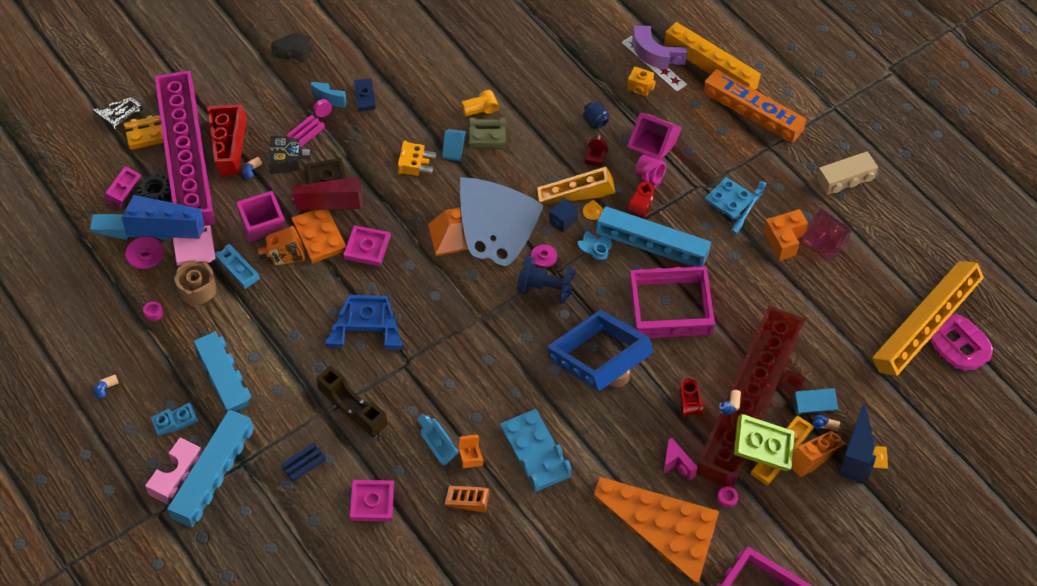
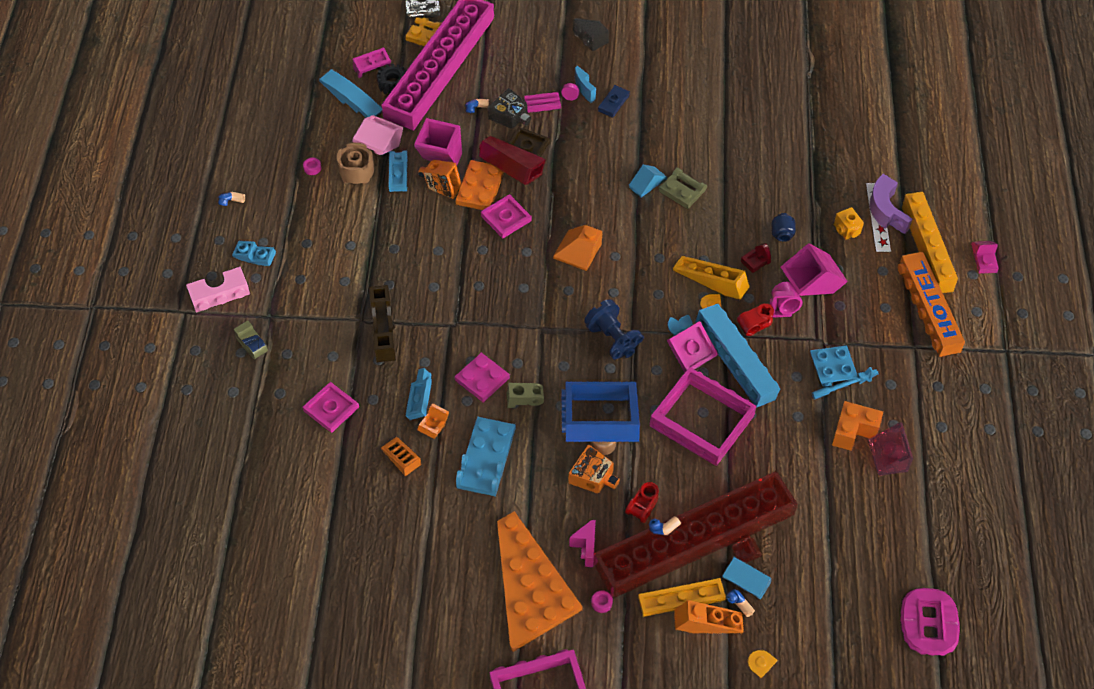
camera: 40 degrees right, 0 degrees up
(141, 247) = (343, 119): dark pink dish -> none
(161, 219) = (367, 99): blue wedge -> none
(210, 468) = (243, 304): dark azure brick -> none
(221, 372) = (312, 240): dark azure wedge -> none
(227, 134) = (478, 70): red wedge -> none
(248, 494) = (250, 340): none -> olive leg
(300, 460) = (311, 342): dark blue tile -> none
(365, 314) = (456, 267): blue wing -> none
(412, 159) = (603, 171): light orange piece -> none
(472, 390) = (482, 377): none -> dark pink plate
(484, 102) = (700, 163): light orange piece -> none
(496, 211) = (628, 254): sand blue piece -> none
(520, 380) = (524, 394): none -> olive leg
(544, 255) = (635, 312): dark pink piece -> none
(563, 215) = (679, 290): dark blue brick -> none
(616, 253) = (692, 347): none -> dark pink plate
(631, 402) = (593, 471): none -> torso
(757, 45) = (985, 256): none -> dark pink slope
(764, 442) = (662, 577): lime plate -> none
(847, 173) = (962, 411): tan brick -> none
(859, 455) = (739, 642): dark blue slope -> none
(927, 318) = (916, 579): light orange brick -> none

